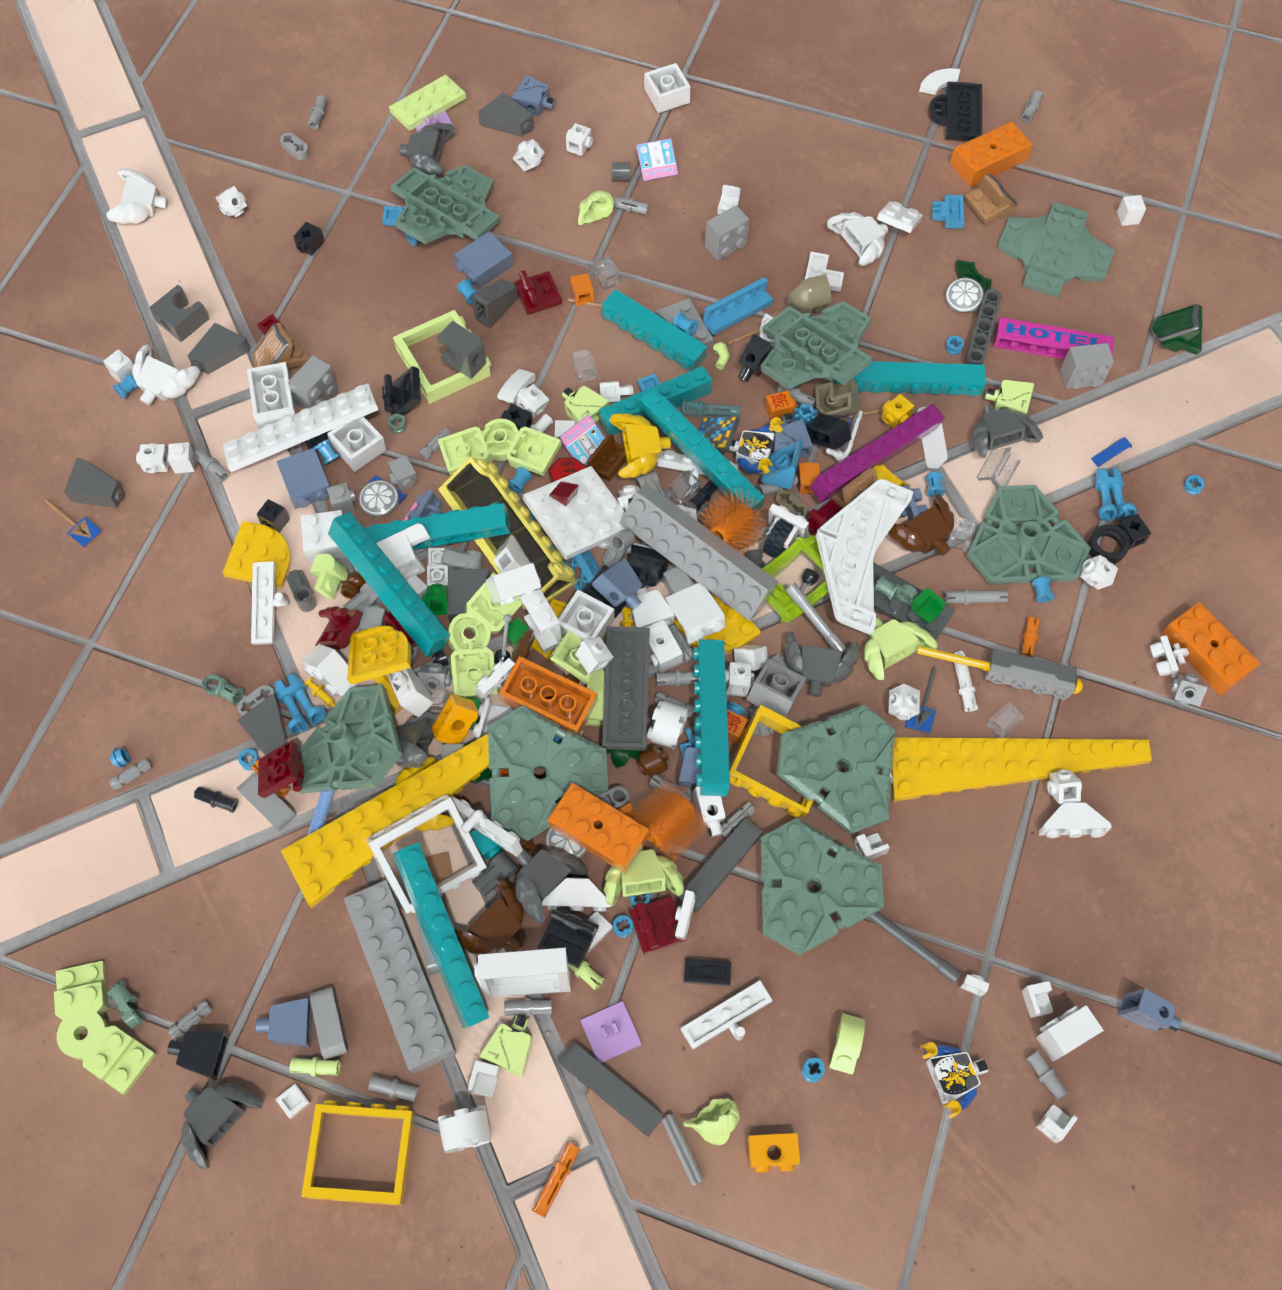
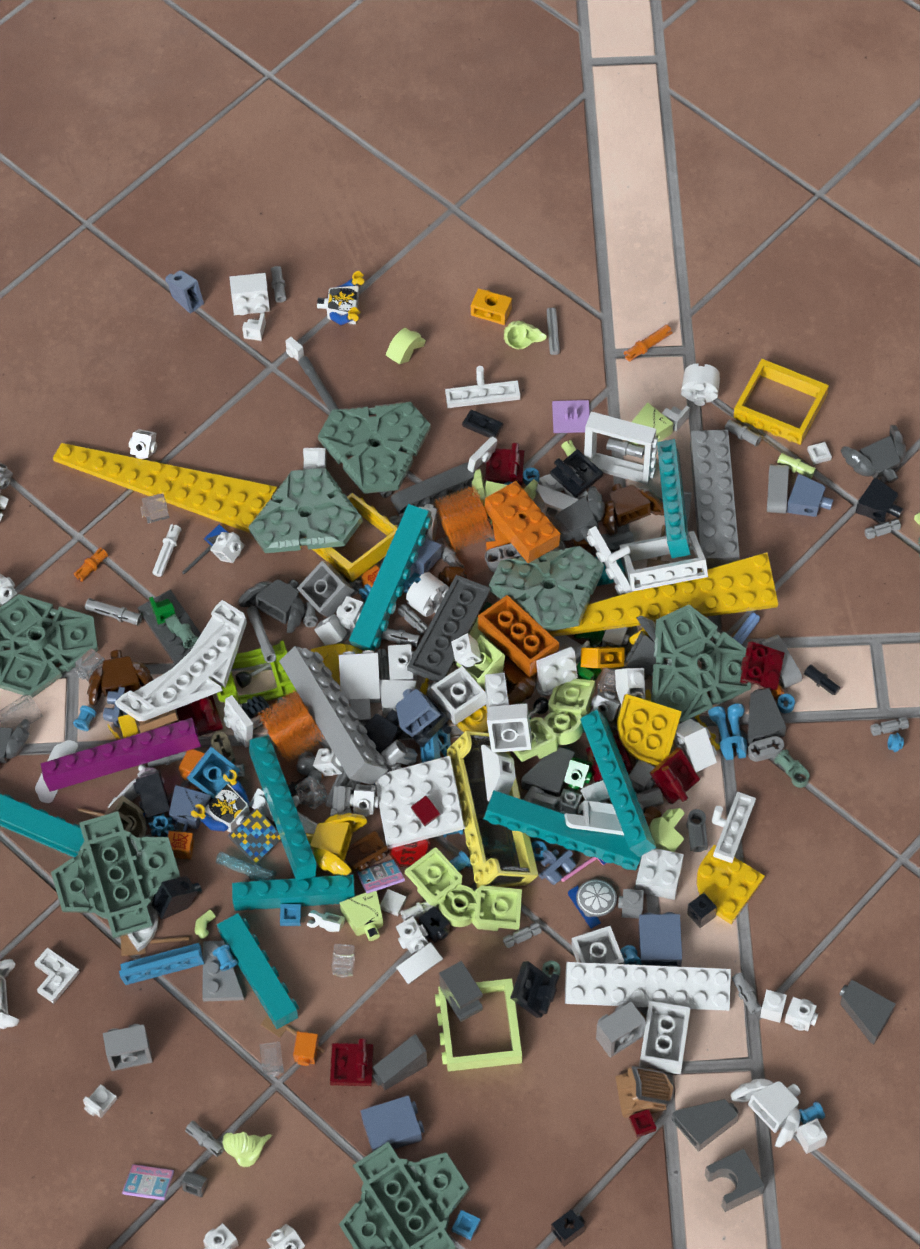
camera: 155 degrees left, 5 degrees down
(83, 531) = (886, 973): piece -> none
(402, 473) = (565, 910): light grey brick -> none
(465, 287) = (422, 1092): dark azure bush -> none
(610, 1089) = (587, 379): dark grey beam -> none
(811, 295) = (87, 938): dark tan brick -> none
(816, 1076) = (436, 341): dark azure bush -> none
(893, 643) = (207, 593): yellowish green torso -> none
(897, 411) = (76, 794): yellow brick -> none
(1019, 671) = (120, 538): piece -> none
(1043, 589) = (54, 595): dark azure bush -> none
(1056, 1124) = (289, 256): white panel -> none
(1075, 821) = (154, 421): white slope -> none

